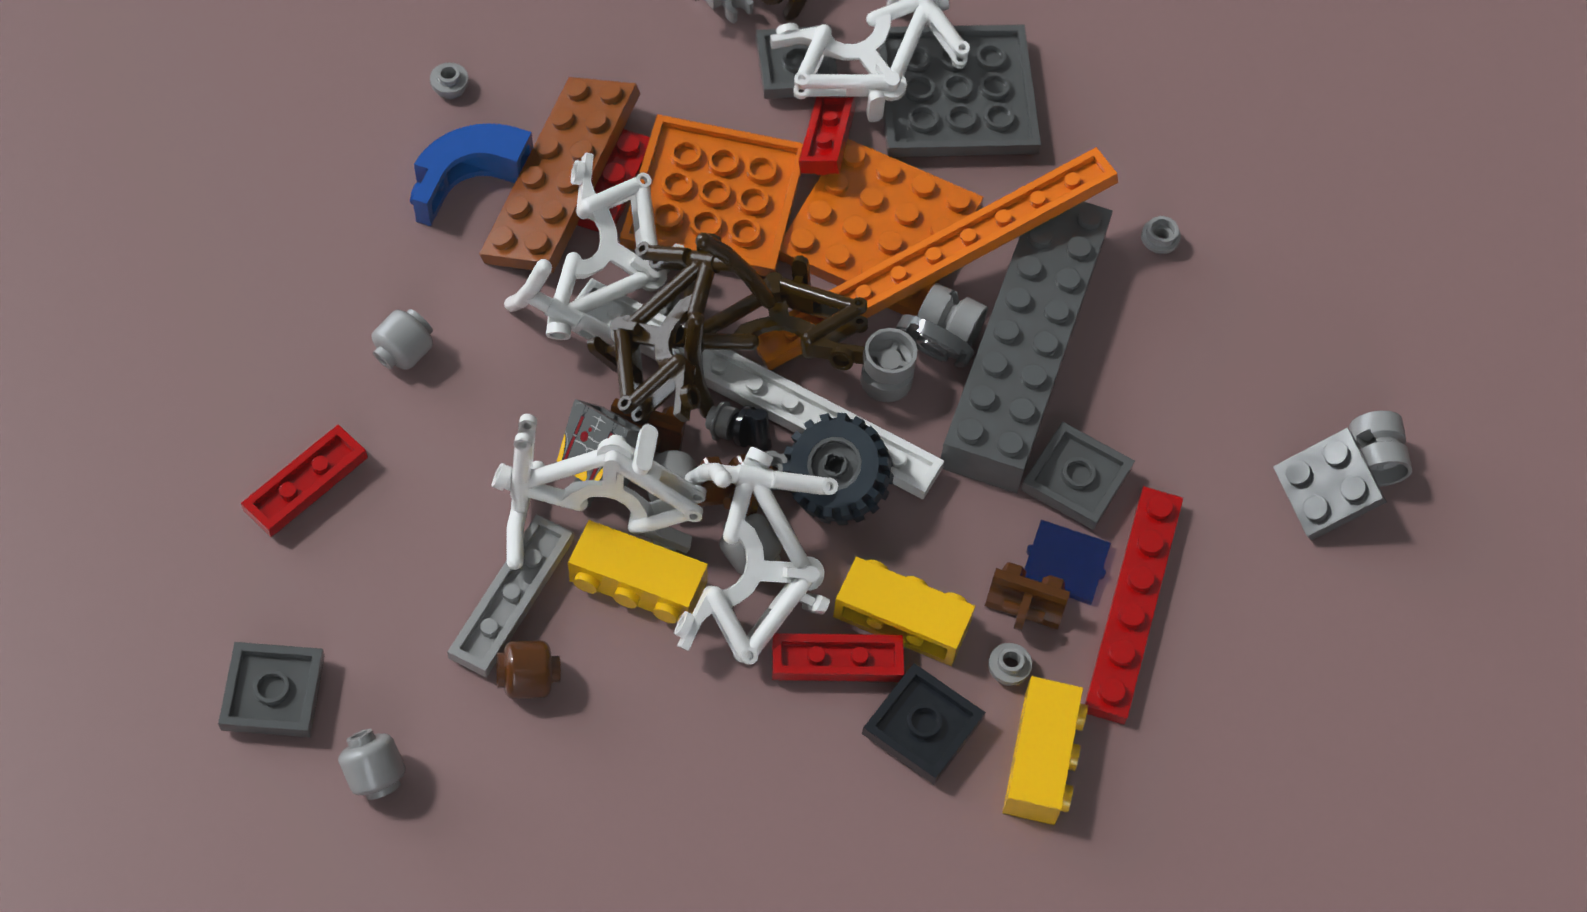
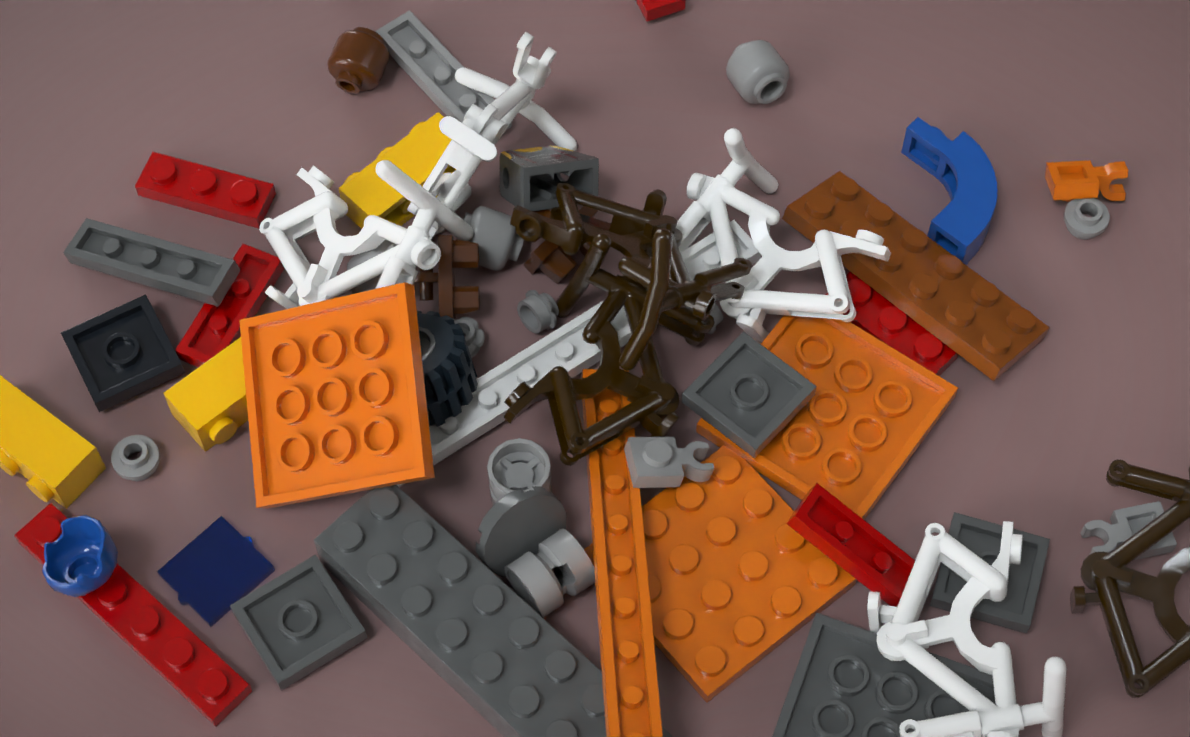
camera: 120 degrees right, 0 degrees up
(419, 87) = (1081, 180): none -> orange plate
(722, 748) = (205, 189): none -> red plate
(746, 225) = (748, 394): none -> dark grey plate
(751, 428) = (518, 327): black plate -> none
(830, 269) = (659, 462): none -> light grey plate
(831, 737) = (152, 262): none -> dark grey plate
(907, 489) = (336, 397): none -> orange plate
(1027, 598) = (174, 517): reddish brown hips -> none
(1133, 628) = (80, 557): none -> blue hair

